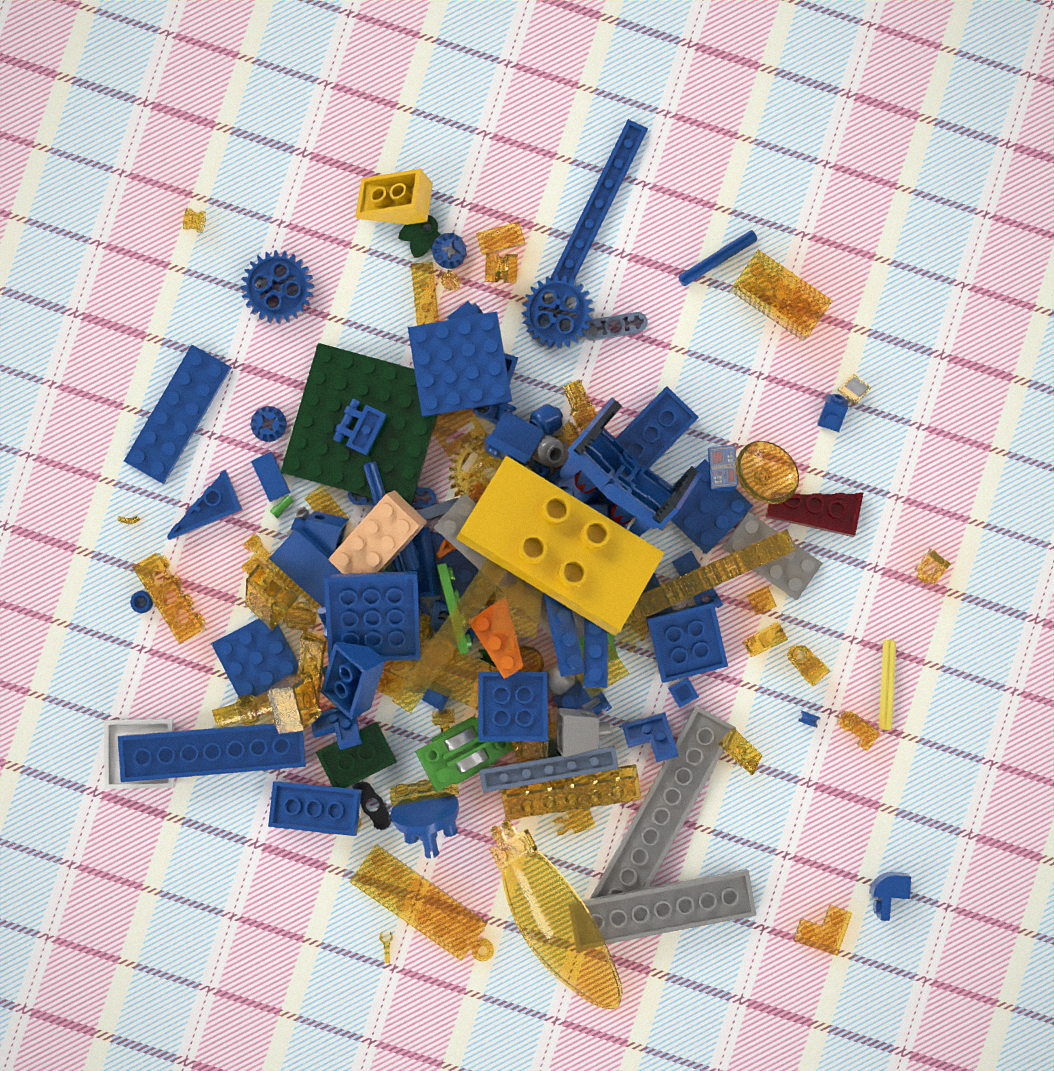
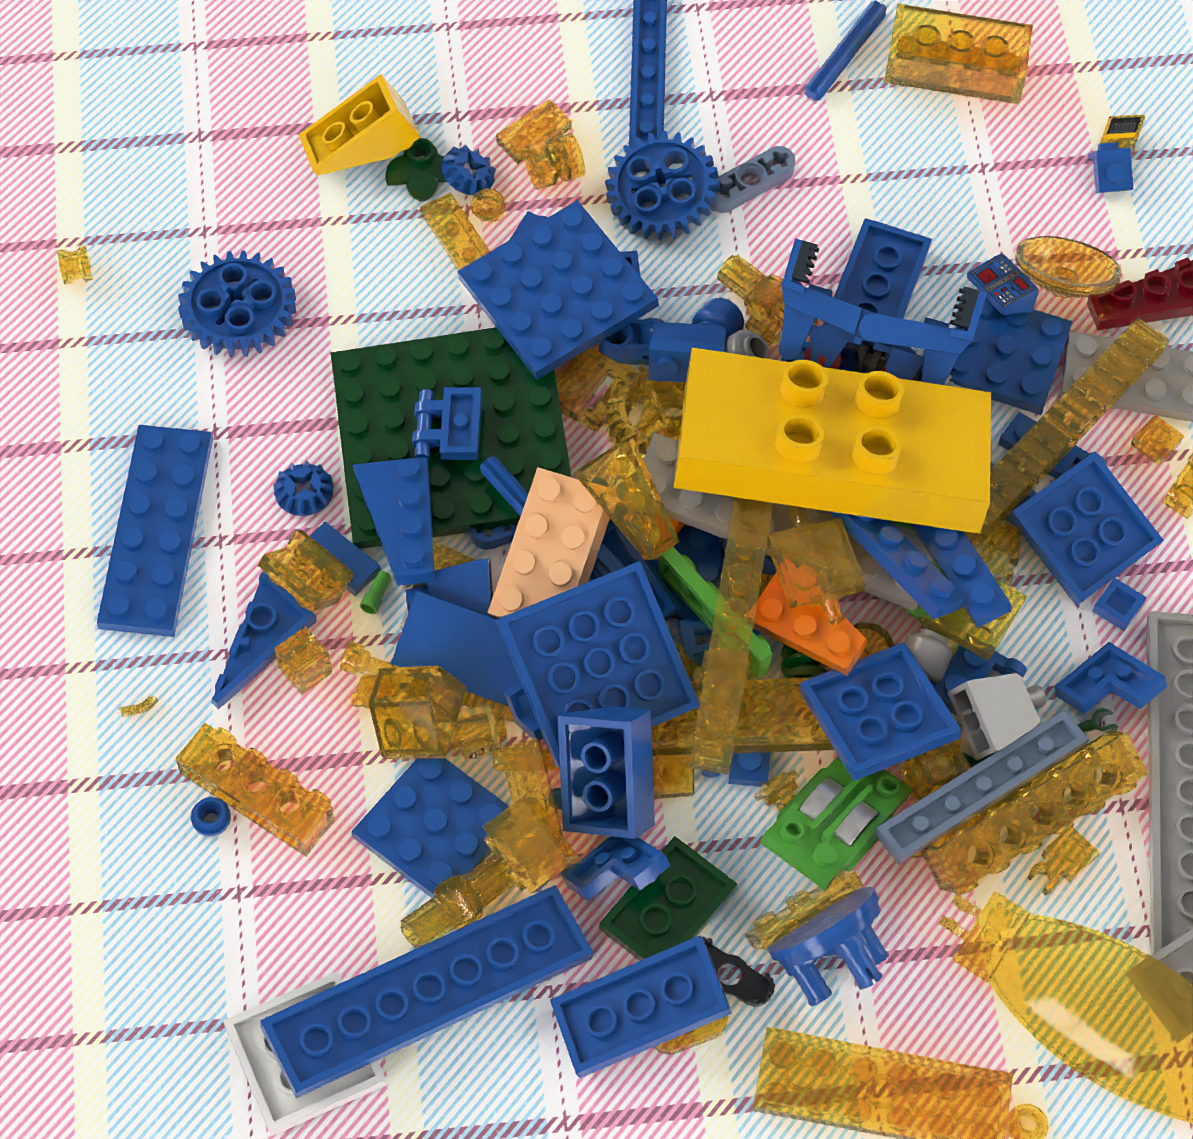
camera: 25 degrees left, 25 degrees down
(223, 534) = (303, 660): none -> clear yellow brick
(245, 483) = (307, 572): none -> clear yellow bracket
(310, 469) = (402, 515): none -> blue wing
(428, 534) = (629, 497): none -> clear yellow wing
(633, 755) = (1095, 722): none -> dark green hand

